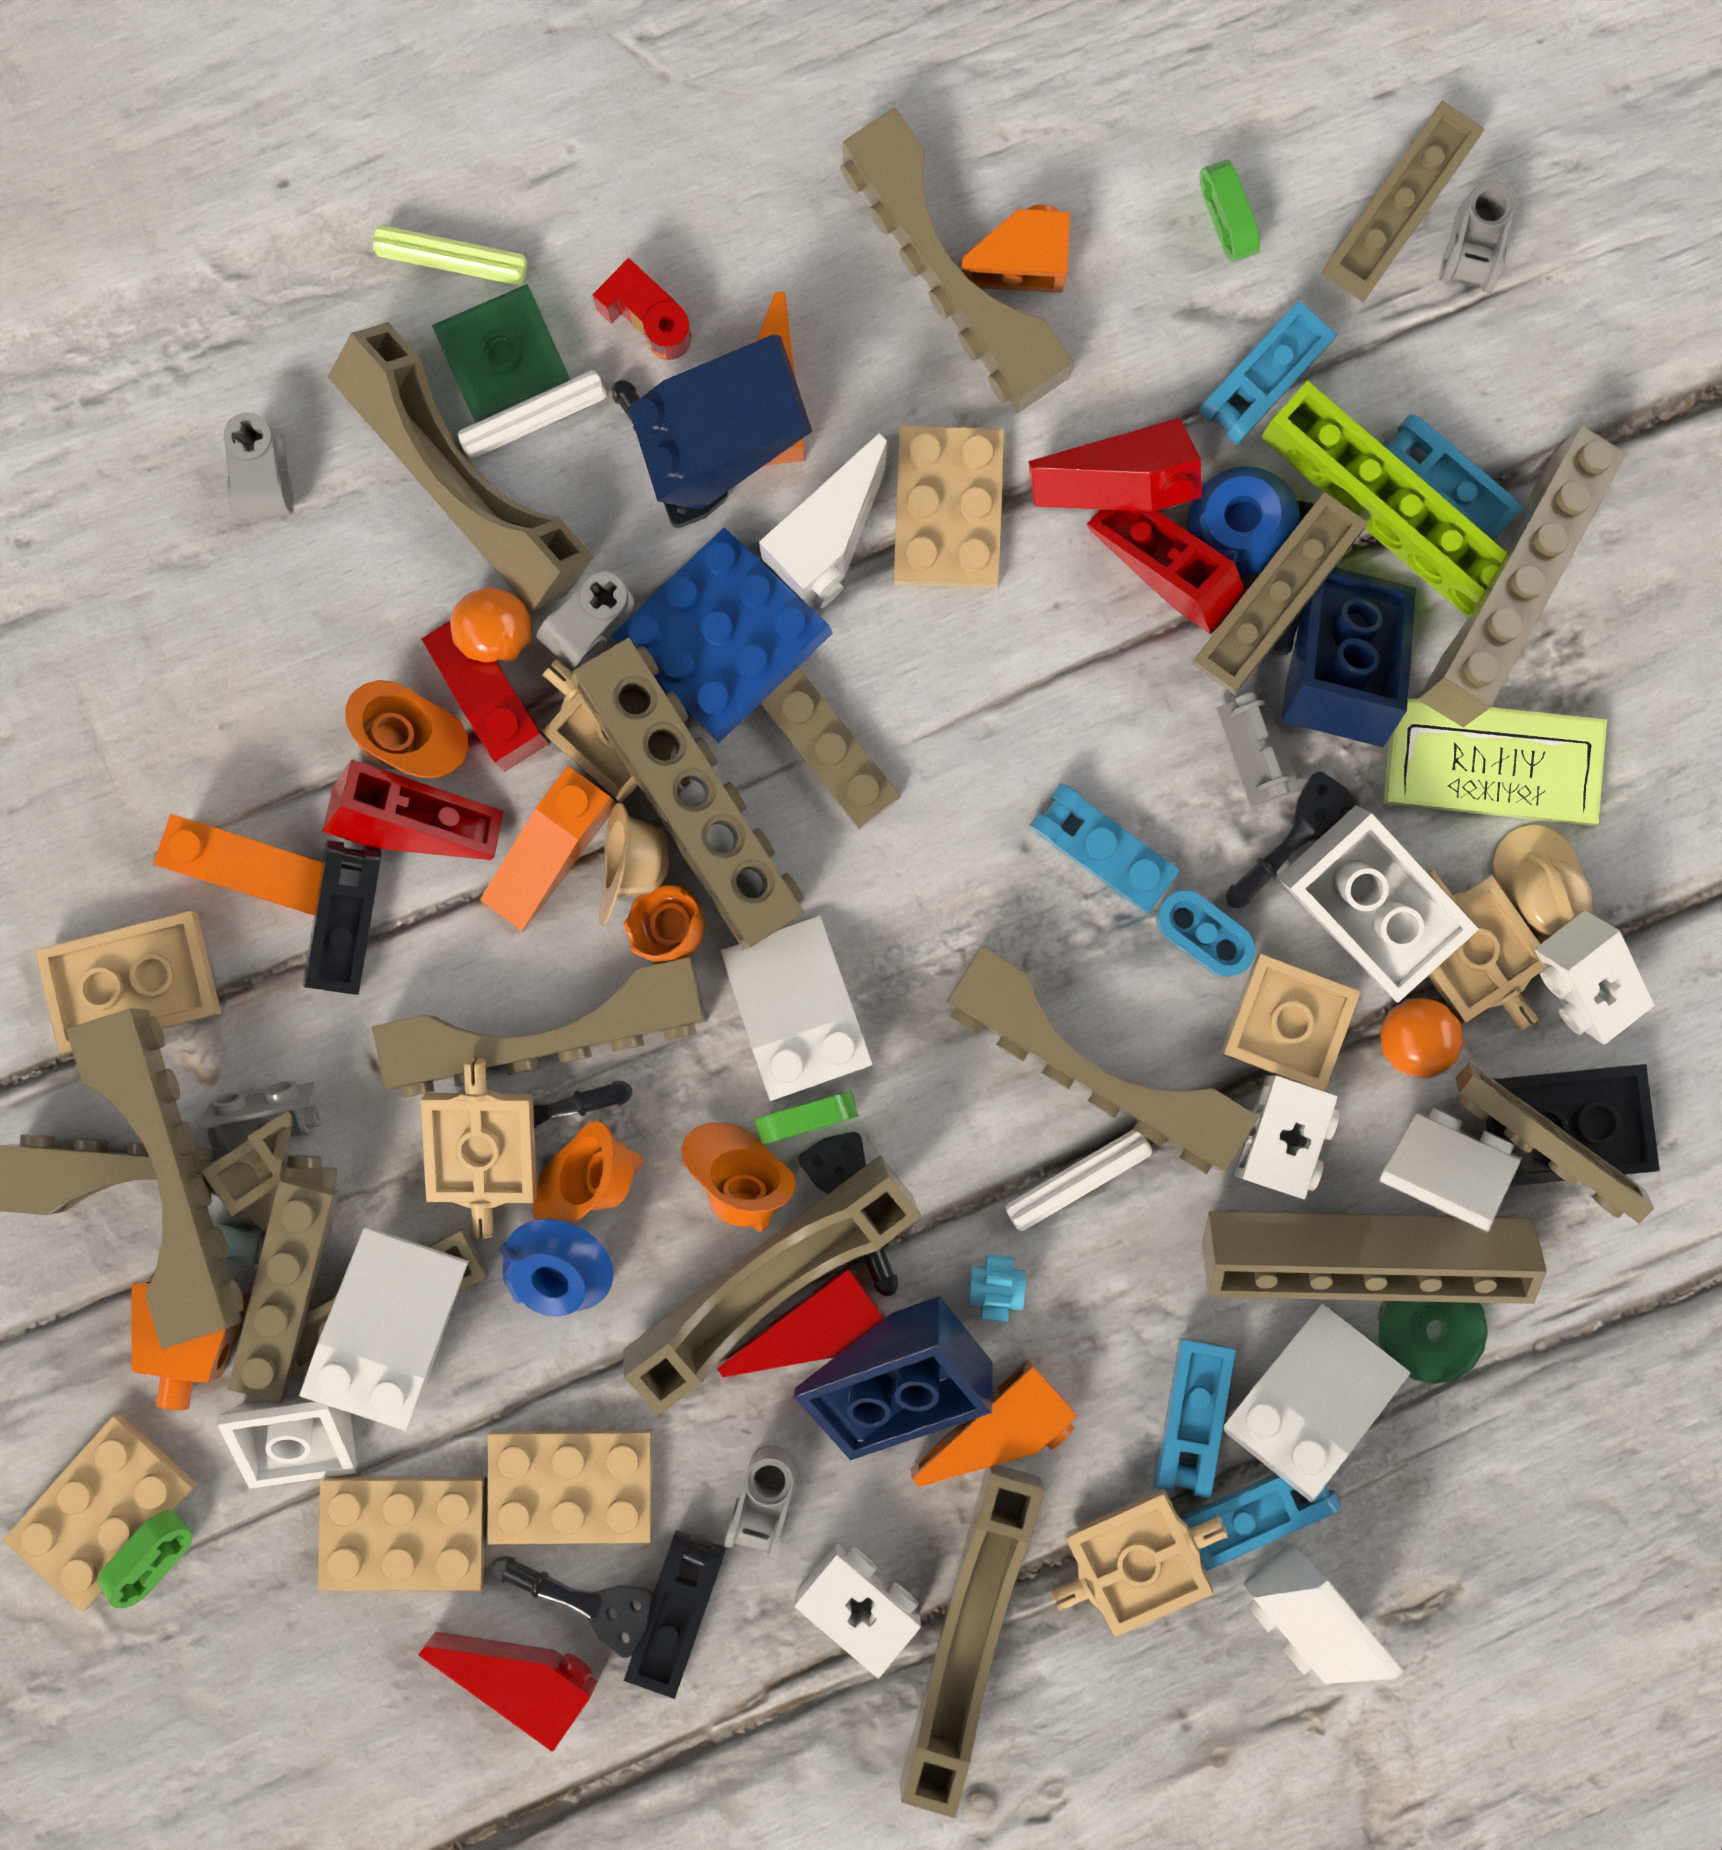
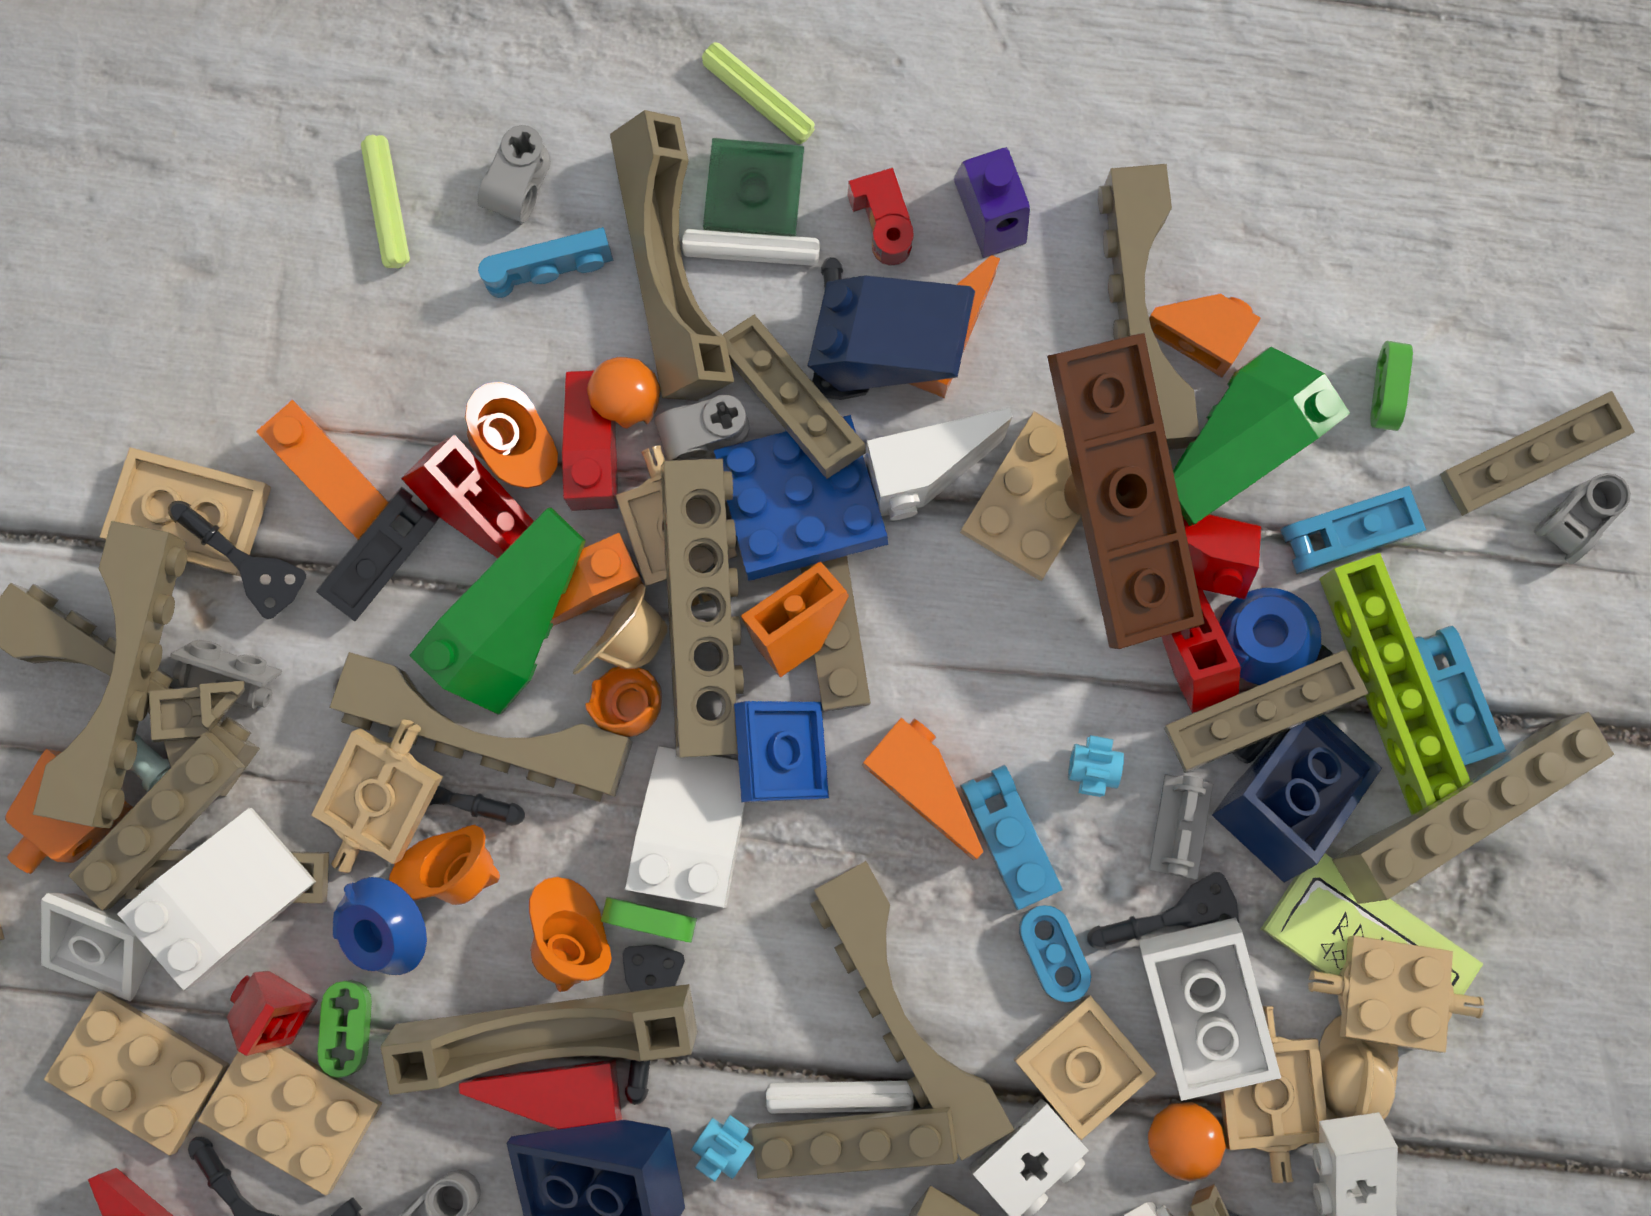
camera: 30 degrees right, 5 degrees down
(141, 567) = (385, 201): none -> yellowish green axle
(224, 999) = (250, 567): none -> black piece
(337, 540) = (545, 261): none -> dark azure plate
(495, 1406) = (267, 1012): none -> red slope
(502, 923) = (496, 628): none -> green wedge
(564, 1387) = (332, 1028): none -> bright green beam
(659, 540) = (792, 397): none -> dark tan plate
(740, 232) = (991, 194): none -> dark purple torso
(785, 753) = (796, 618): none -> orange slope
(842, 888) = (781, 751): none -> blue plate
(988, 840) = (919, 776): none -> orange slope
(1033, 451) = (1125, 490): none -> reddish brown plate
(1117, 1213) = (854, 1143): none -> dark tan plate
(1125, 314) = (1261, 421): none -> green wedge
(1147, 735) = (1096, 766): none -> medium azure gear
(1542, 792) = (1396, 994): none -> tan plate

